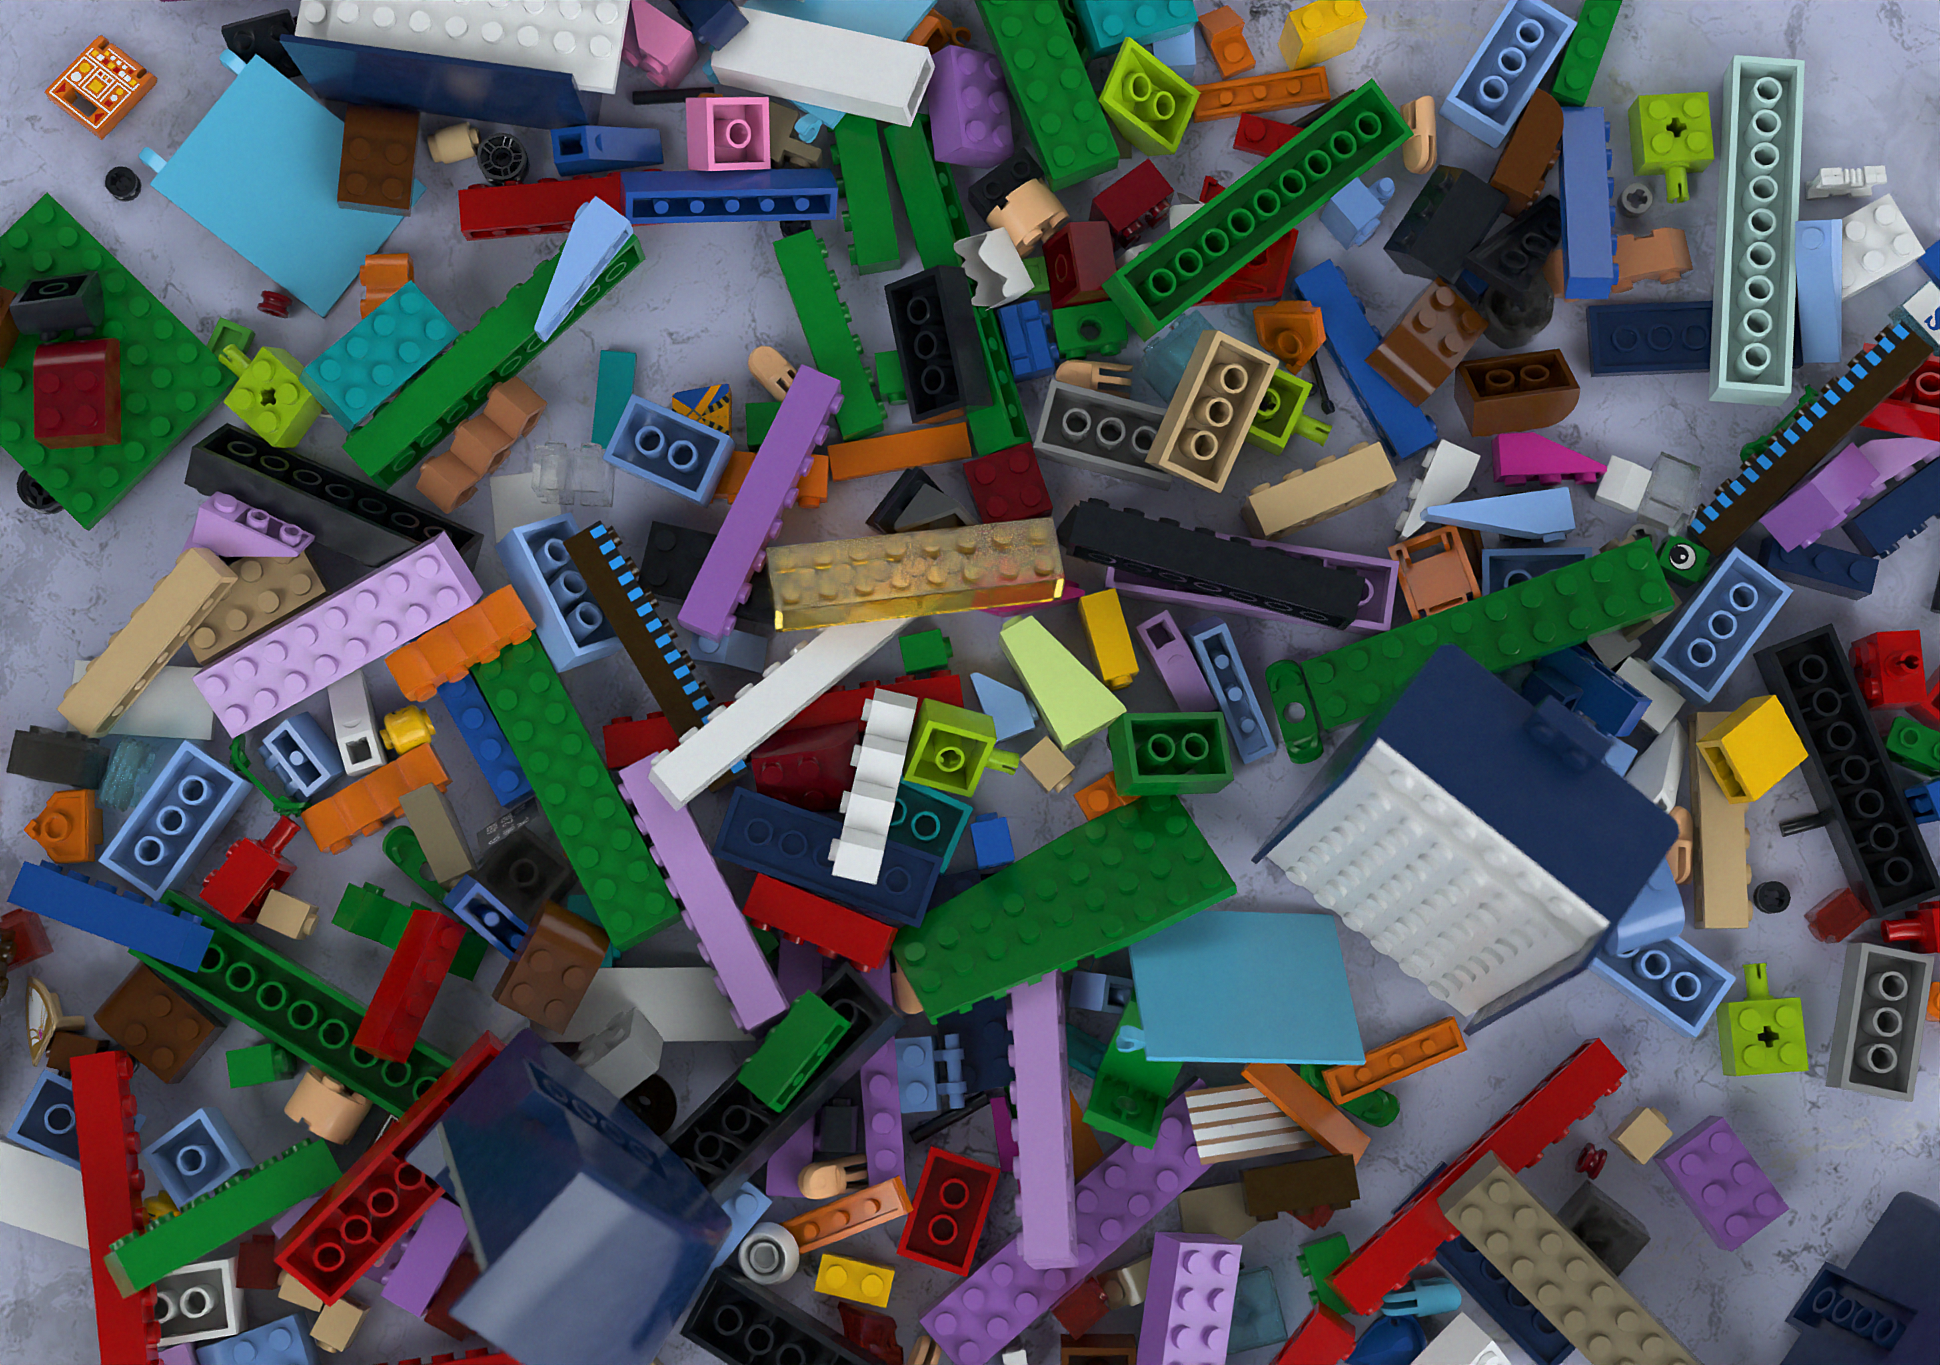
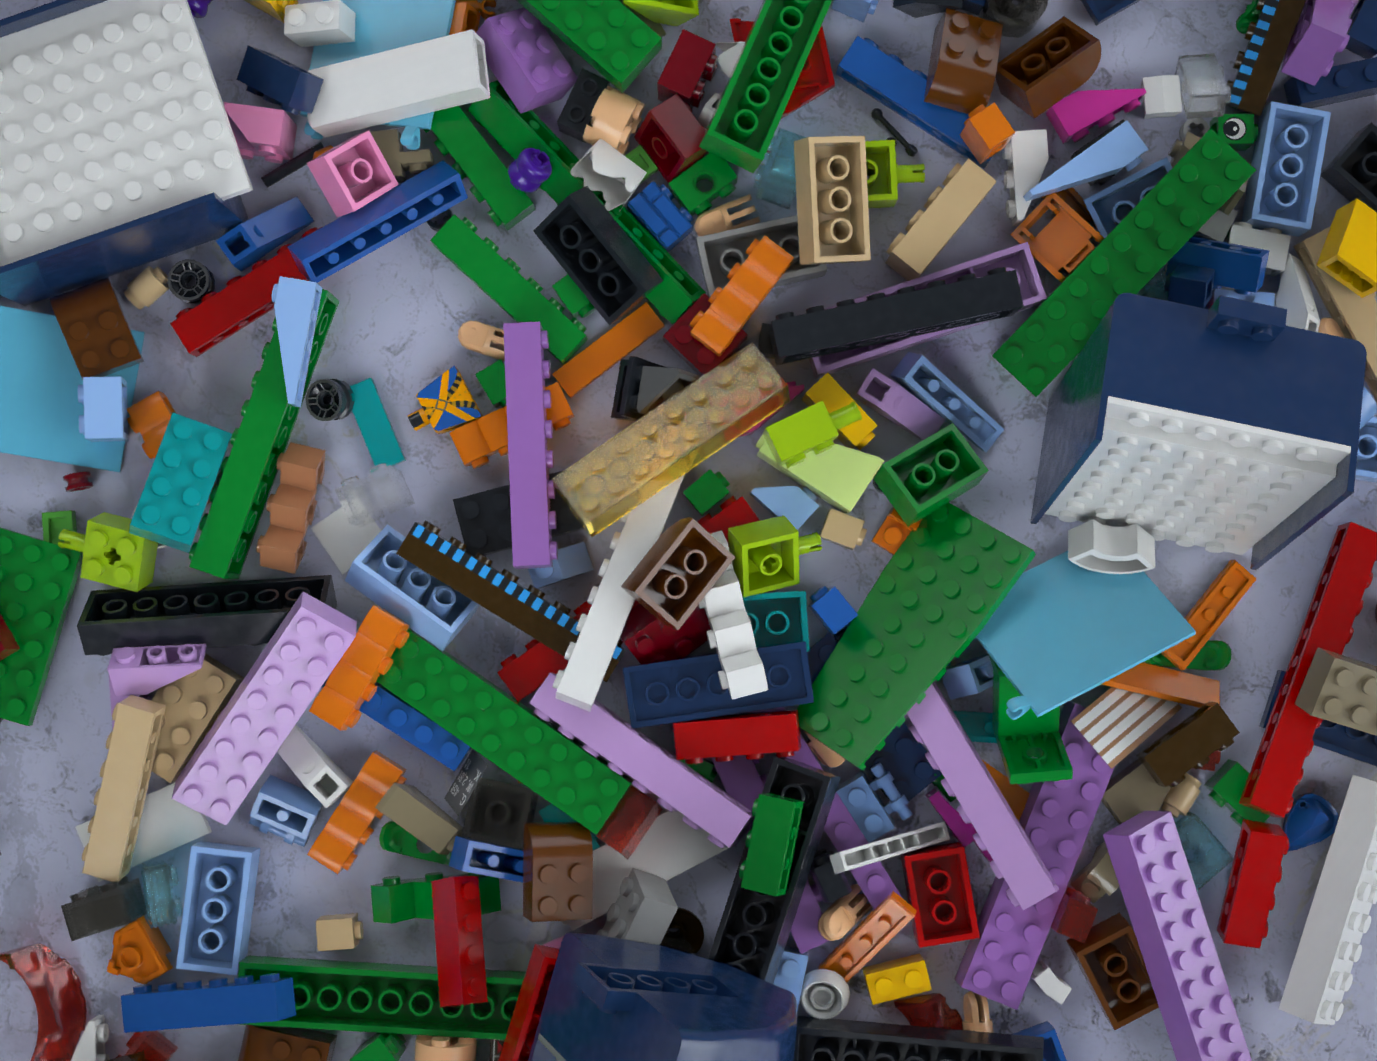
camera: 25 degrees left, 5 degrees up
(241, 763) = (241, 837): green piece -> none
(250, 873) = (294, 918): red brick -> none
(342, 242) = (104, 409): none -> light blue brick
(407, 729) = (352, 750): yellow head -> none
(572, 345) = (319, 399): none -> black wheel
(657, 955) = (629, 822): none -> clear red brick
(669, 450) = (438, 441): medium blue brick -> none
(846, 712) = (678, 572): none -> reddish brown brick
(913, 222) = (530, 170): none -> dark purple piece
(920, 1128) = (889, 847): none -> white piece
(949, 1118) = (915, 807): black piece -> none
(1059, 636) = (808, 431): none -> lime brick
(1065, 463) = (741, 296): none -> orange brick
(1266, 1241) = (1182, 796): none -> tan brick
(1287, 687) = (1019, 410): green piece -> none
(1291, 331) = (855, 106): orange plate -> none
(1324, 932) = (1111, 548): none -> white brick
(1412, 424) = (986, 132): none -> orange brick
(1422, 1298) = (1318, 775): medium azure arm -> none

